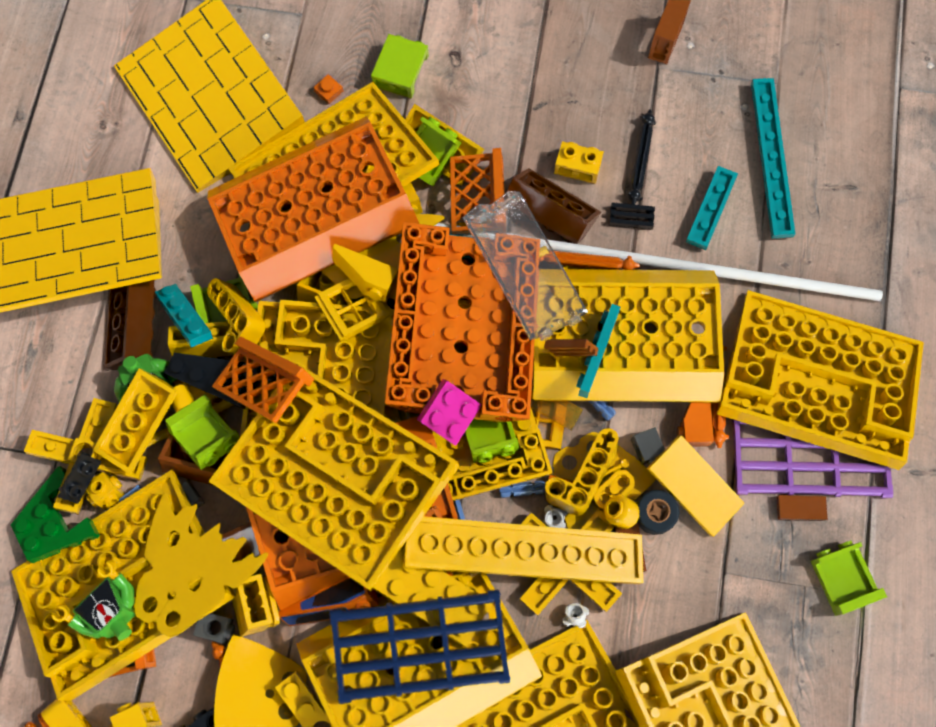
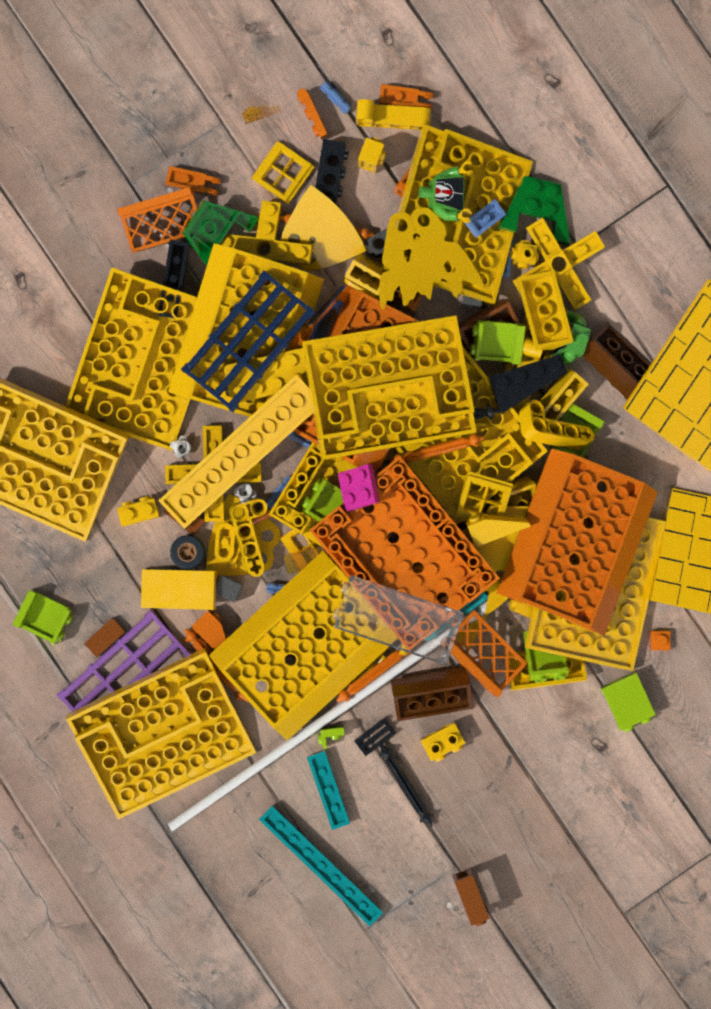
camera: 130 degrees right, 15 degrees up
(79, 478) = (541, 240): black hinge -> none
(97, 553) = (485, 218): none -> medium blue plate
(183, 315) = (588, 399): teal plate -> none
(275, 365) = (487, 417): orange fence -> none
(348, 385) = (439, 449): none -> orange wheel
(571, 347) = (323, 595): dark orange tile -> none
(600, 340) = (304, 603): teal plate -> none
(621, 512) = (207, 531): yellow head -> none
(666, 248) = (333, 732): none -> lime bracket
(671, 591) = (138, 512): none -> yellow brick

